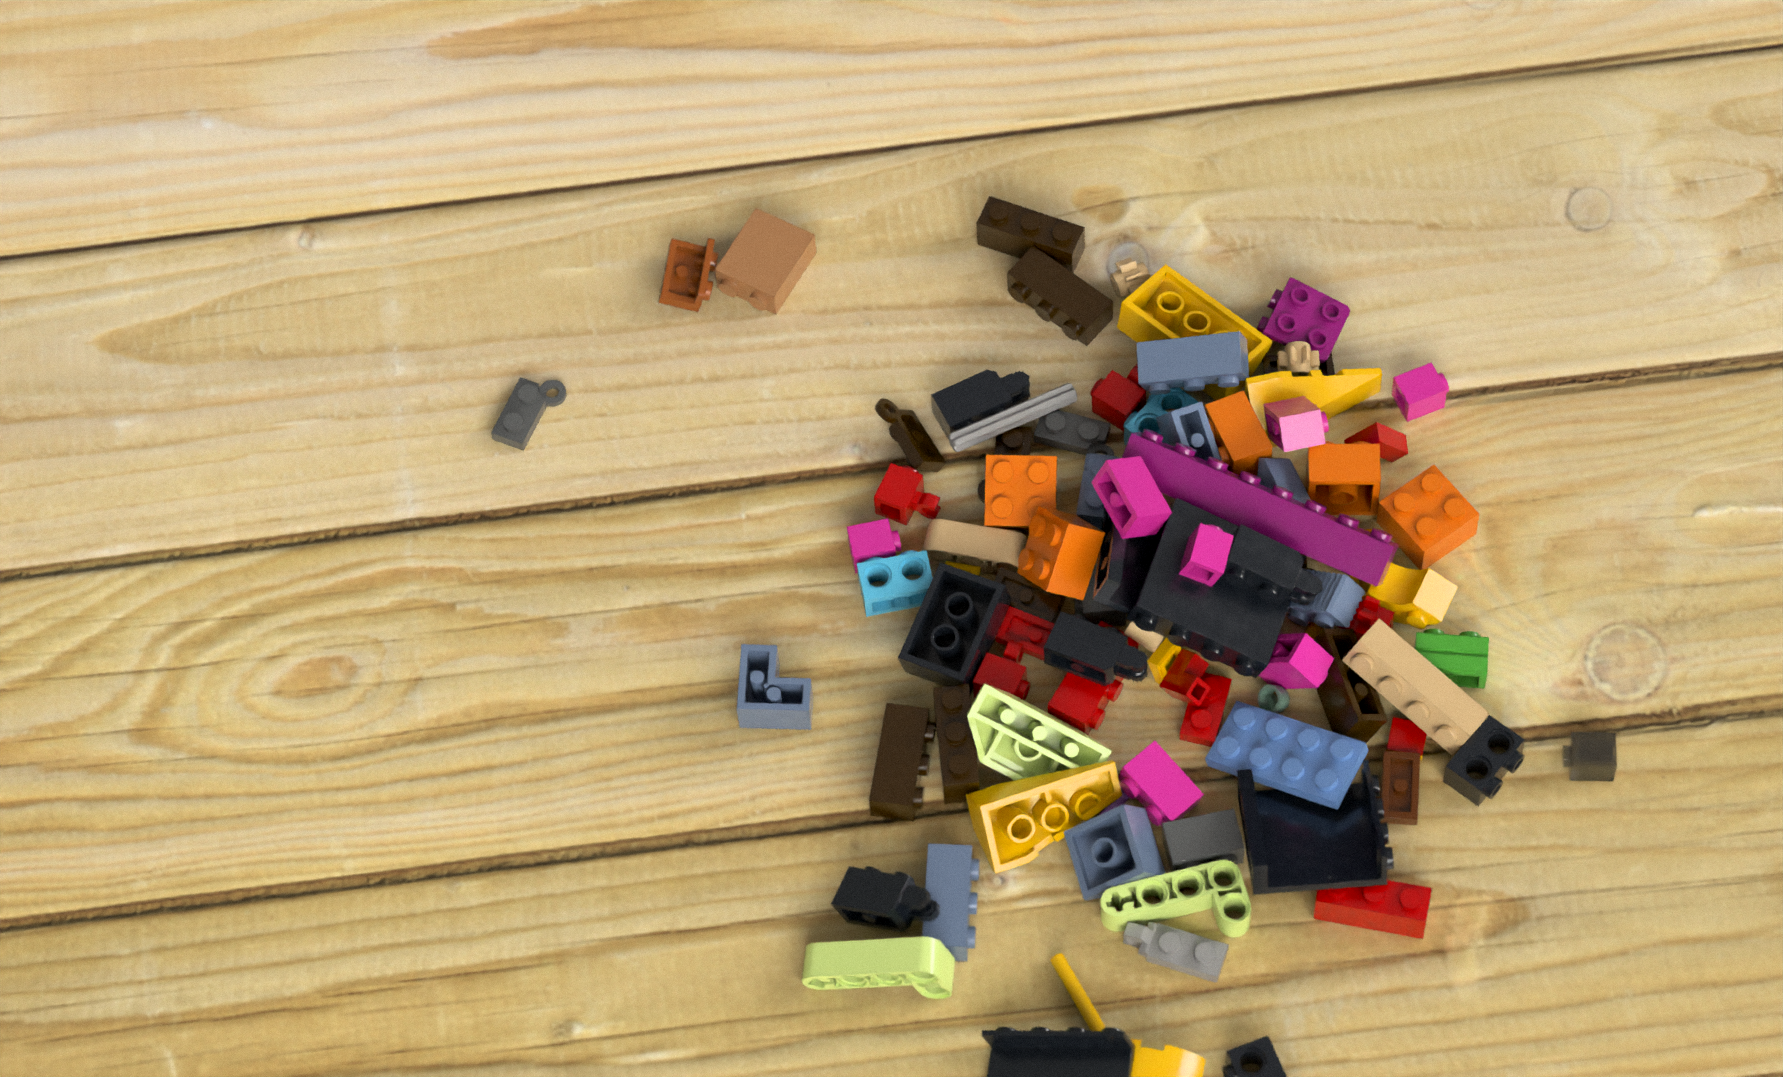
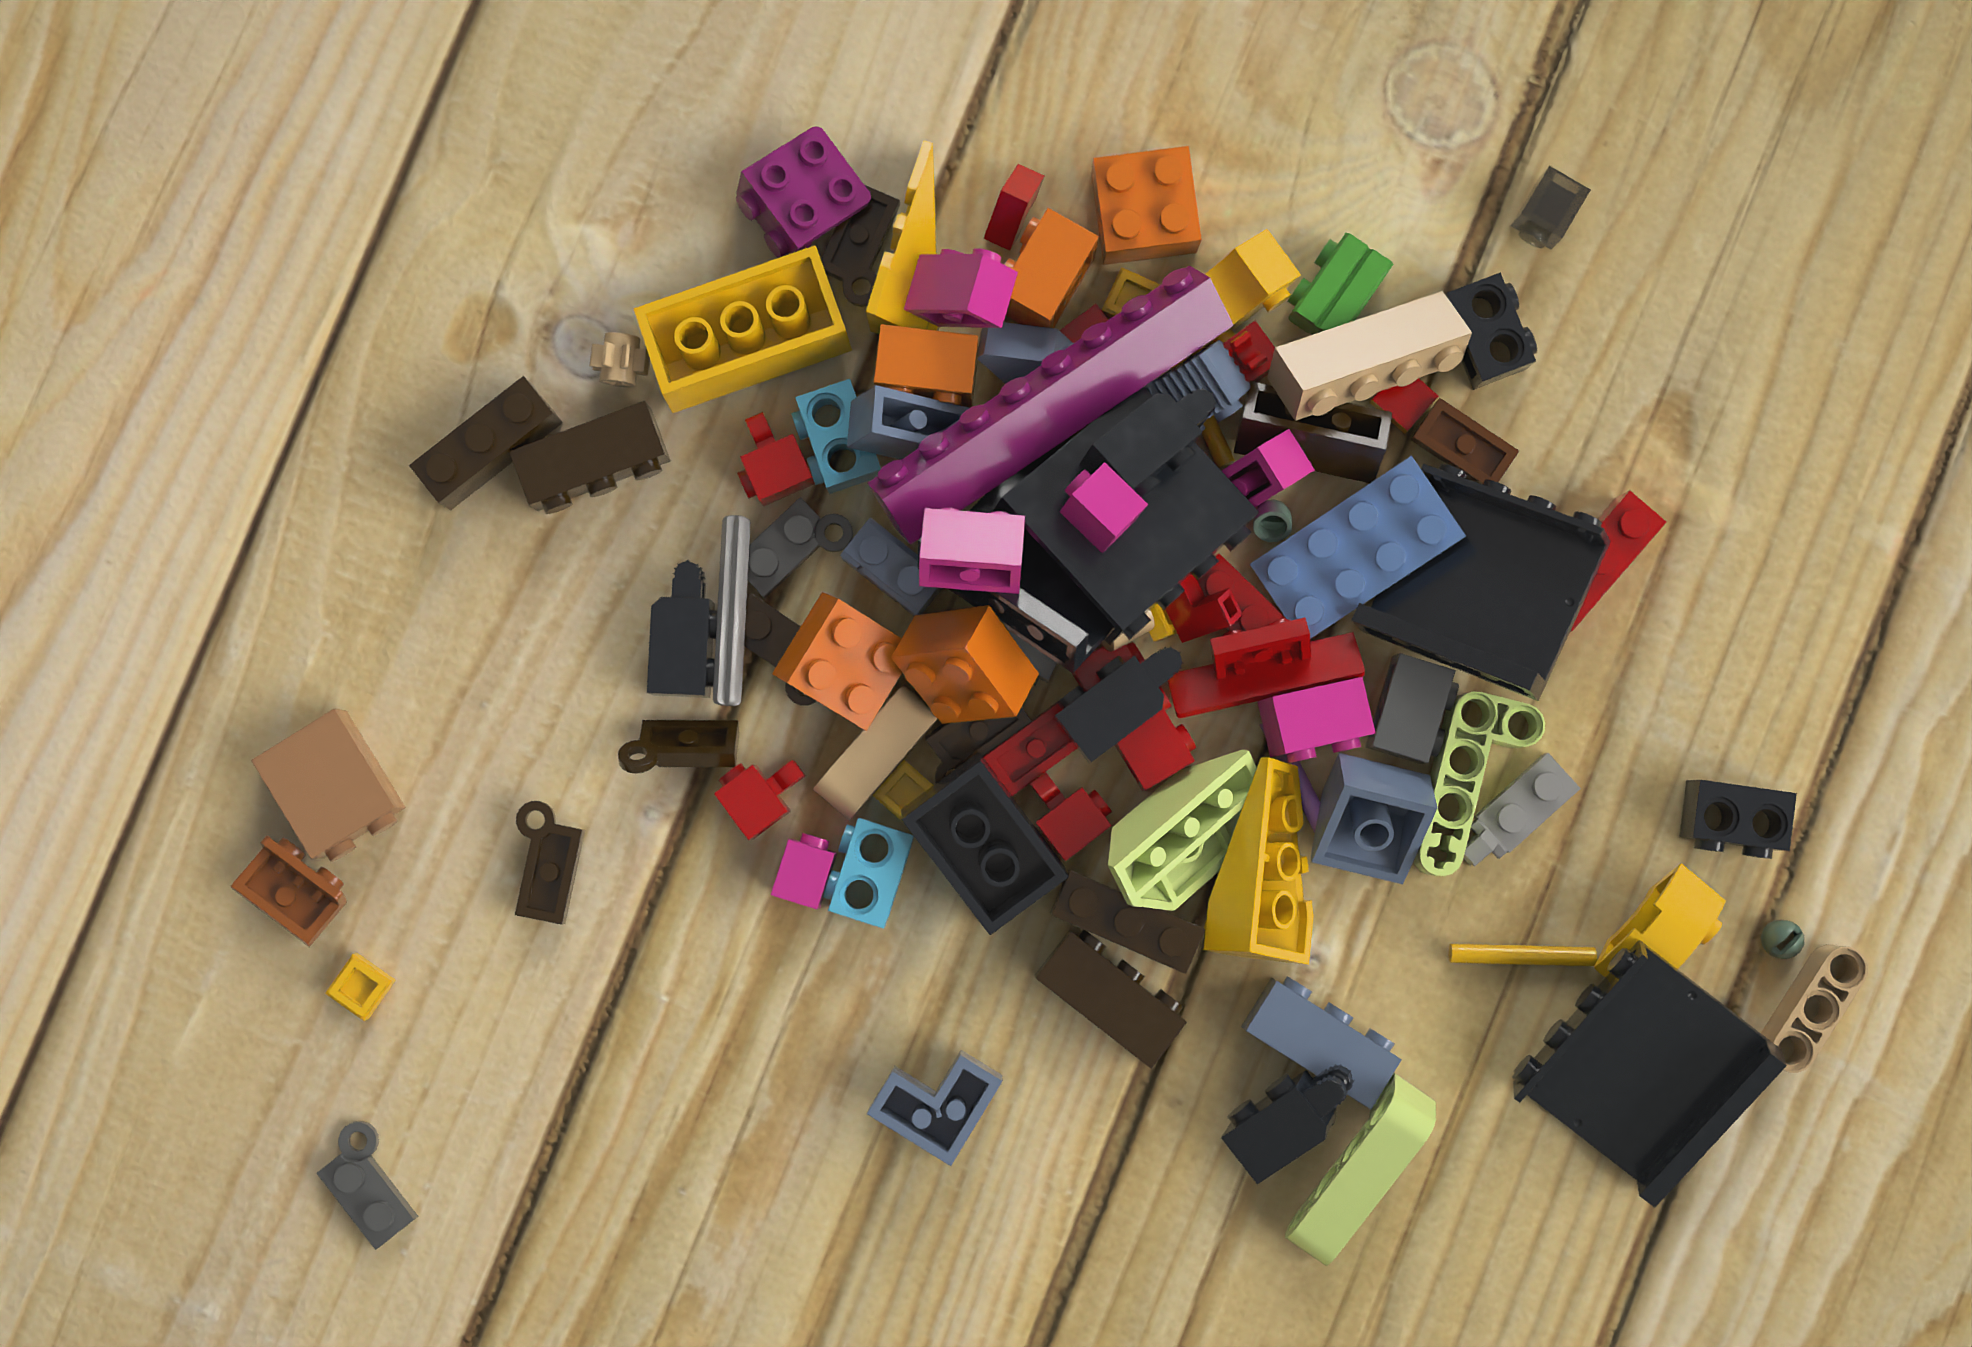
camera: 65 degrees left, 25 degrees up
(649, 344) = (360, 986): none -> yellow tile
(788, 404) = (549, 865): none -> dark brown hinge
(1179, 734) = (1264, 665): none -> red bracket
(1192, 362) = (805, 361): sand blue brick -> none
(1298, 359) = (863, 232): tan gear -> none
(1420, 391) = (971, 111): dark pink brick -> none

